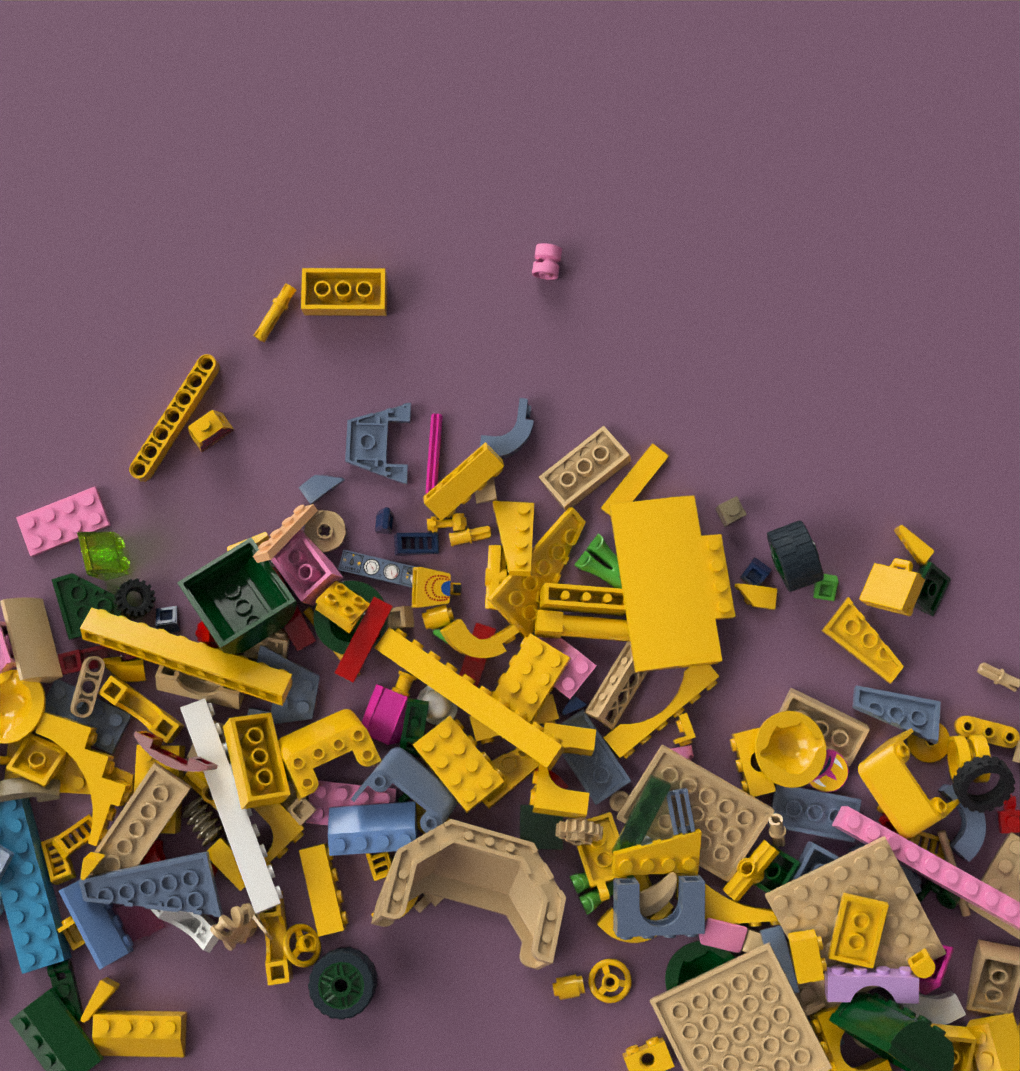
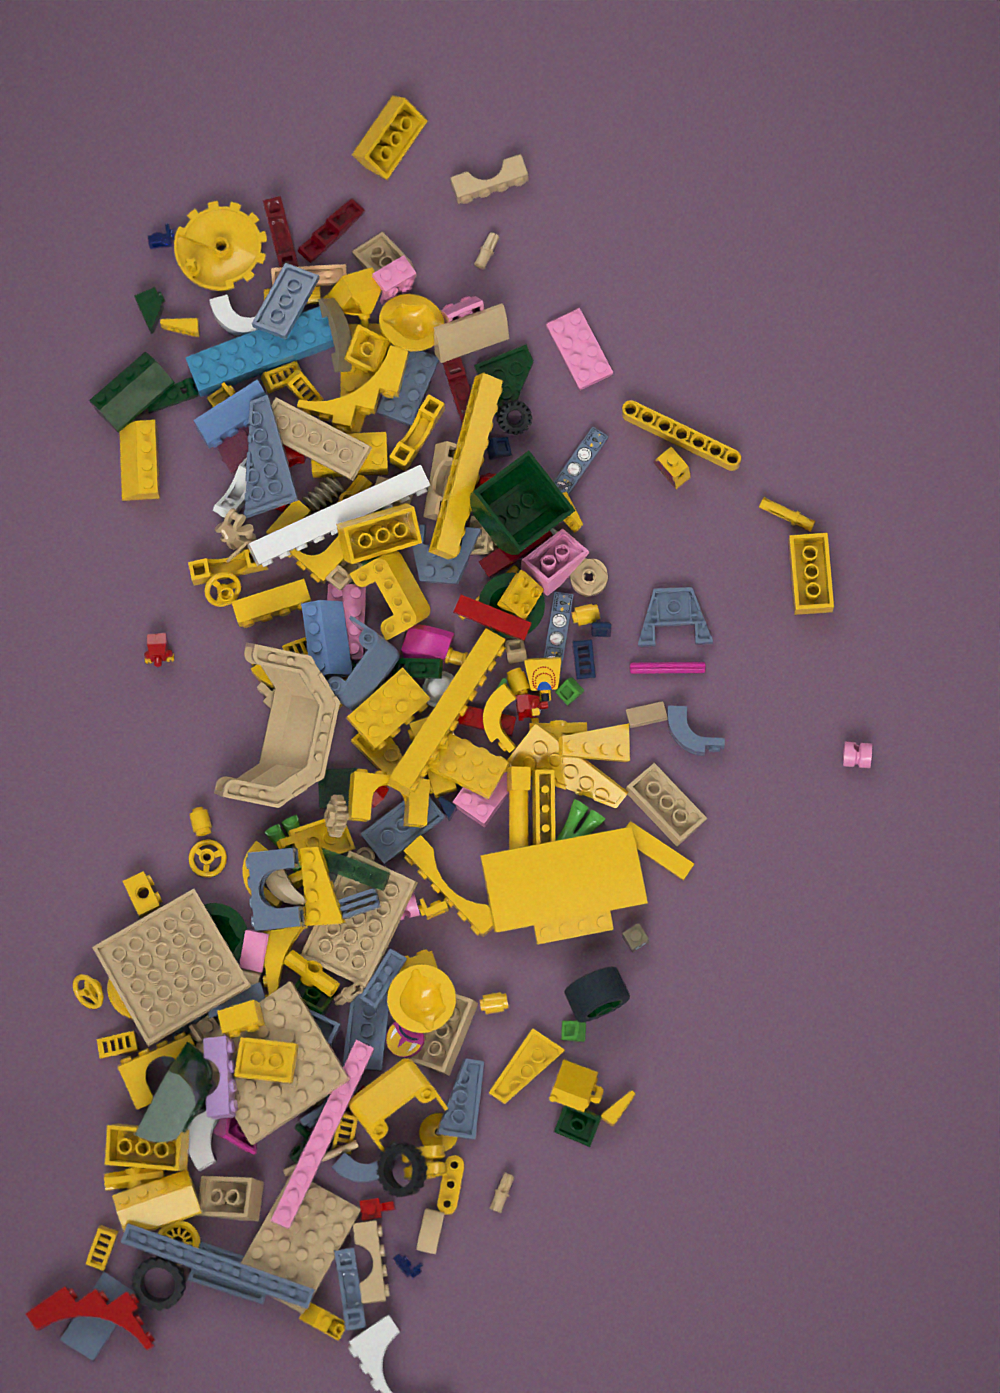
camera: 85 degrees right, 5 degrees down
(88, 698) = (442, 382): tan beam -> none
(89, 863) = (281, 402): yellow slope -> none
(103, 554) = (550, 386): clear neon green slope -> none
(103, 991) = (170, 425): yellow slope -> none
(127, 671) = (450, 418): yellow slope -> none
(152, 745) = (385, 444): slope -> none
(191, 529) = (580, 460): none -> tile
(281, 536) = (578, 537): light nougat plate -> none
(318, 486) = (629, 568): sand blue slope -> none
(330, 995) = (190, 612): wheel -> none
(366, 1025) = (158, 649): none -> red piece
(367, 537) = (585, 614): none -> yellow brick
(451, 561) = (569, 691): none -> bright green slope
(458, 523) = (606, 693): yellow bar -> none
(463, 482) = (642, 694): yellow brick -> none
(466, 605) = (530, 707): none -> red piece
(470, 535) = (595, 705): yellow axle -> none
(611, 687) = (469, 842): tan fence -> none
(755, 572) = (581, 965): dark blue slope -> none
(758, 596) = (560, 969): yellow slope -> none
(765, 790) = (382, 978): none -> sand blue plate
(792, 670) = (494, 1003): none -> yellow brick
(922, 964) = (240, 1118): yellow brick -> none

